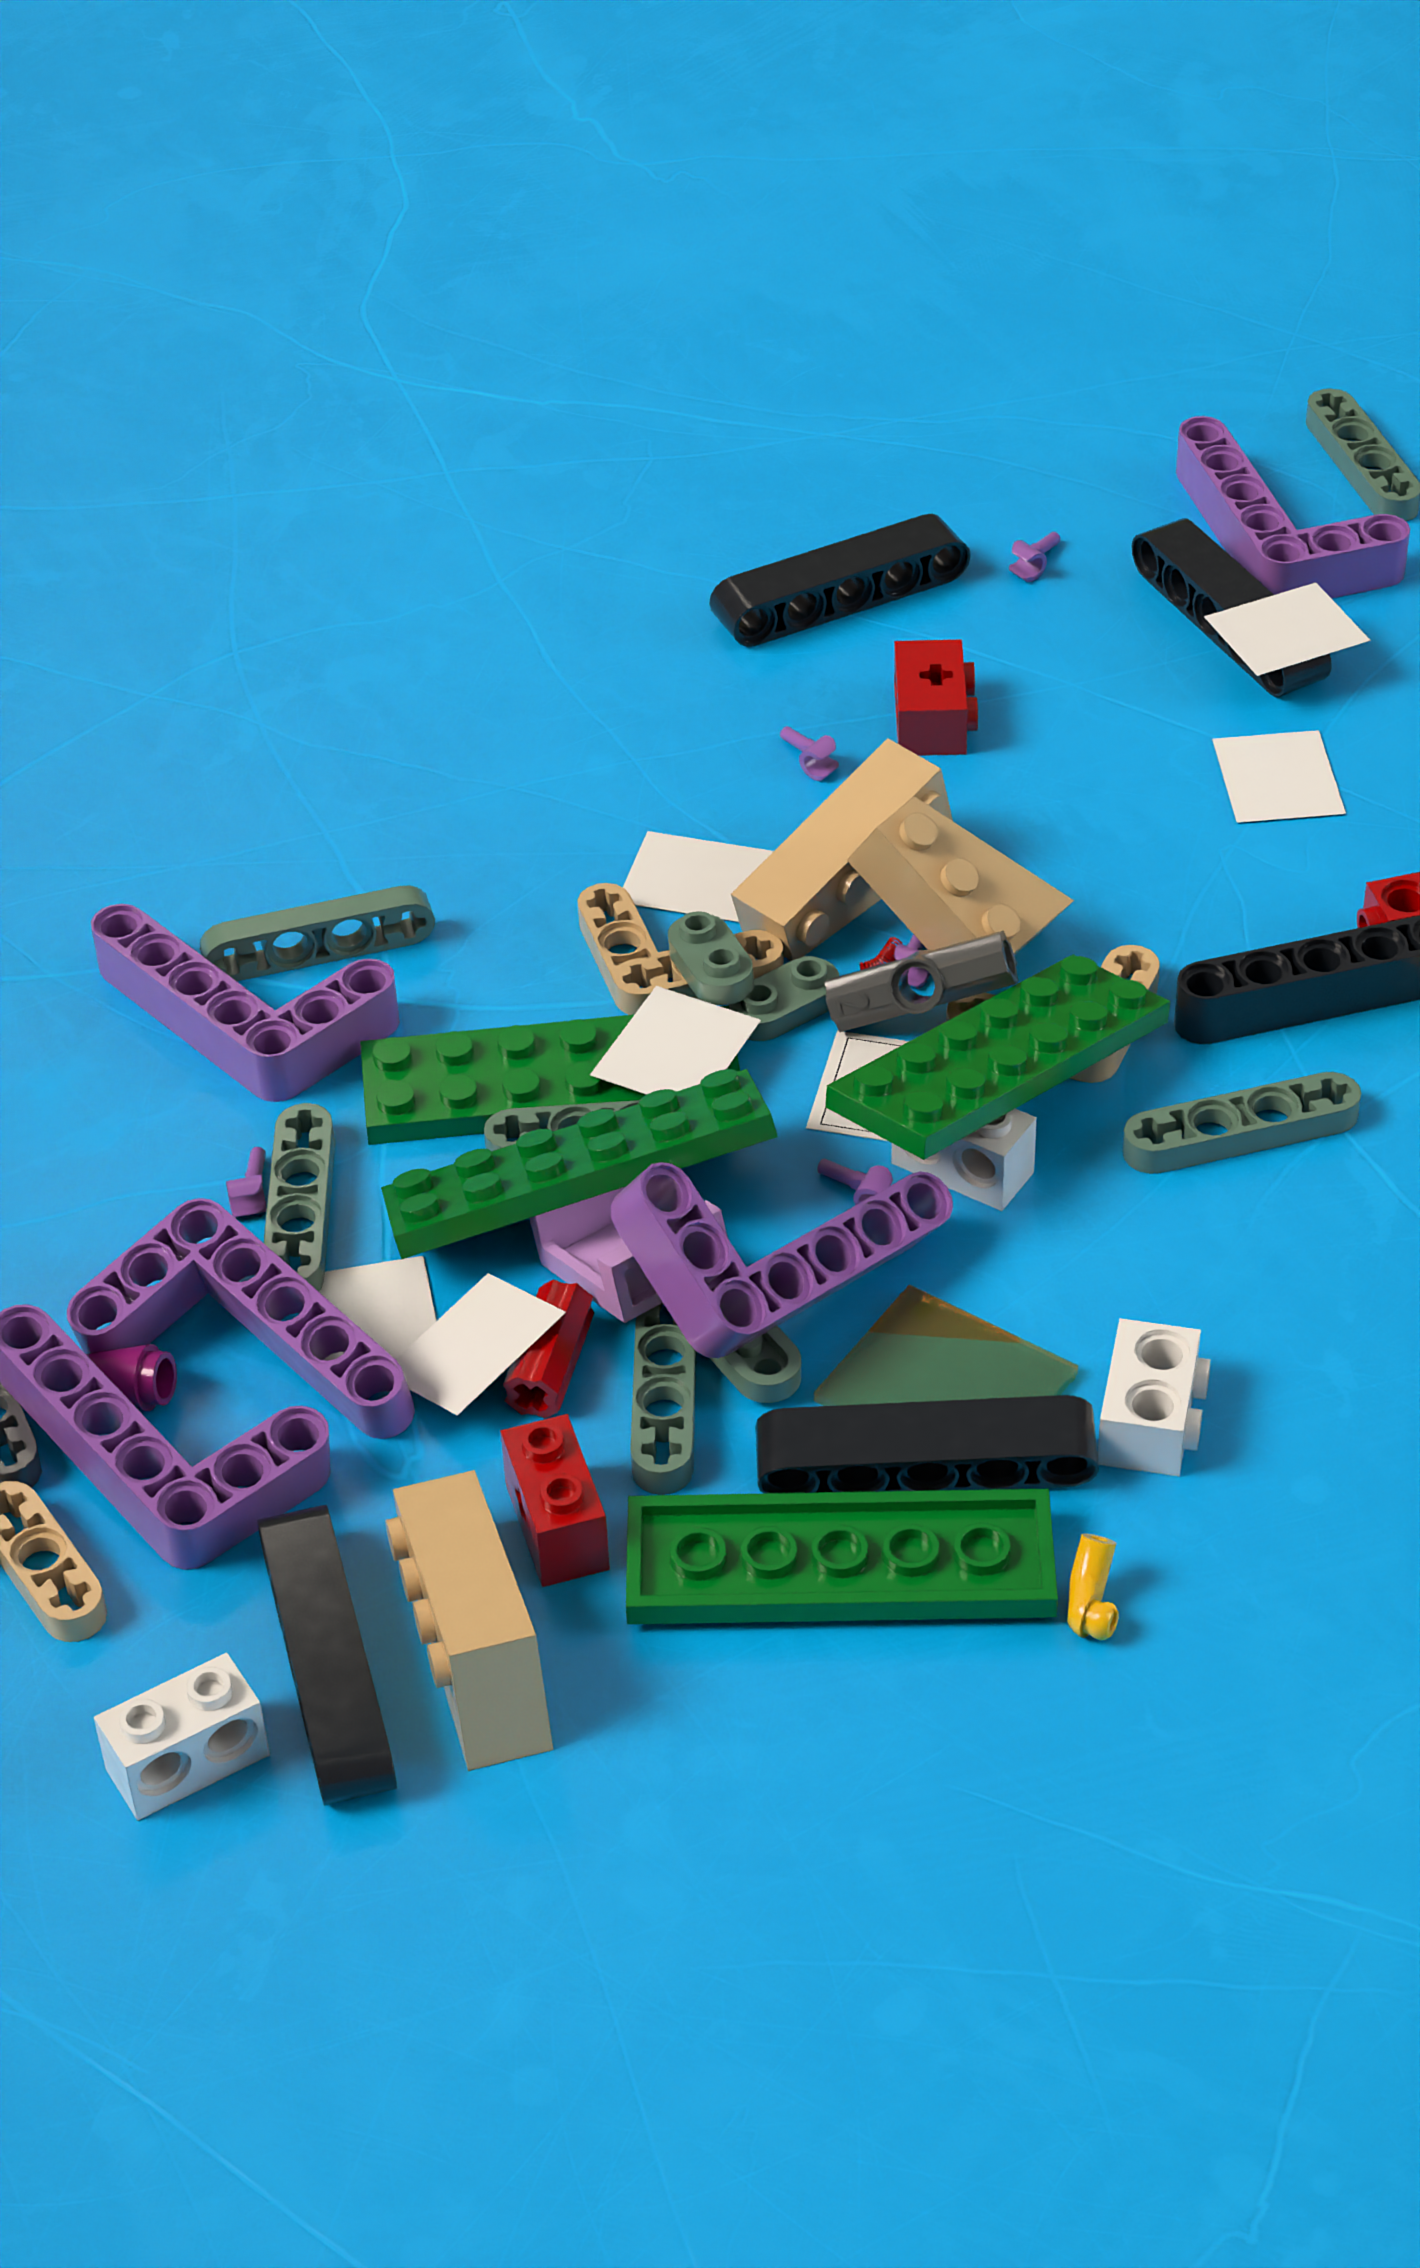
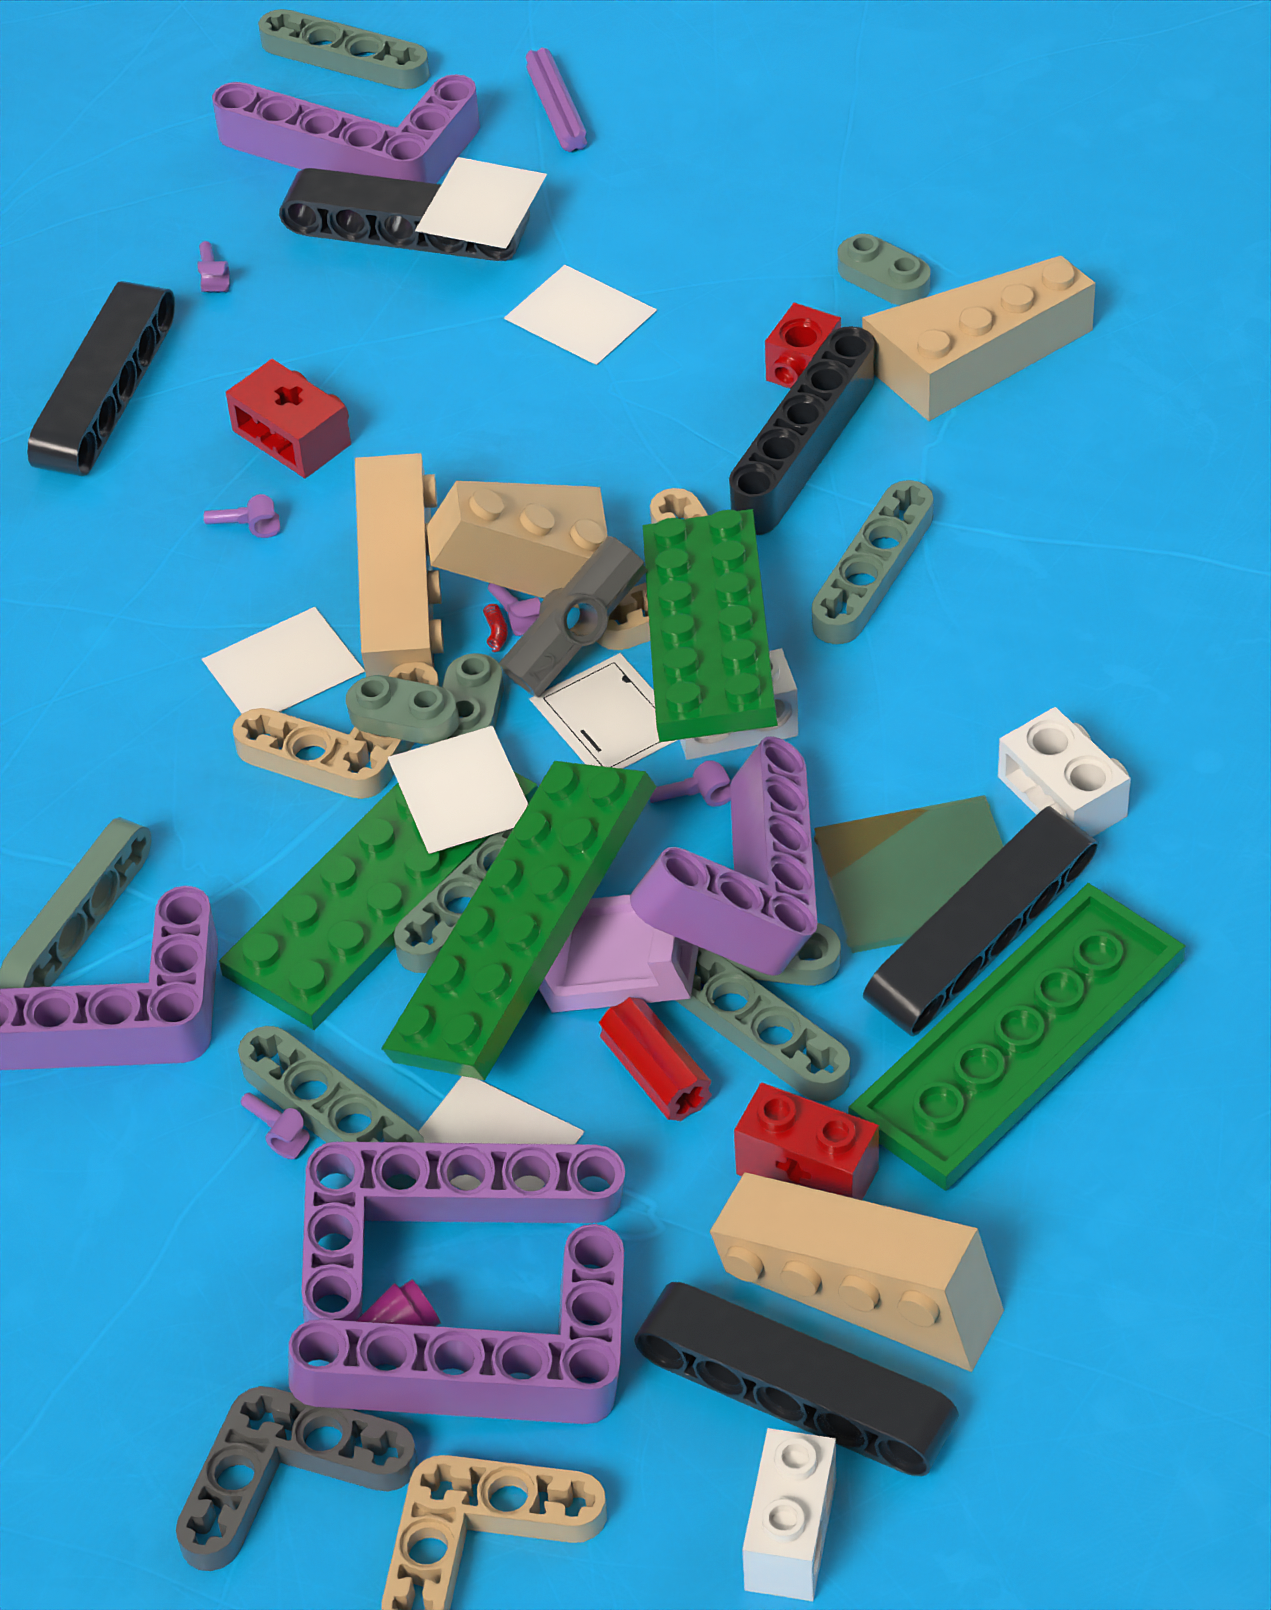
camera: 45 degrees left, 5 degrees up
(475, 1343) = (609, 1090): white sticker -> none
(1087, 1586) = (1178, 922): yellow arm -> none

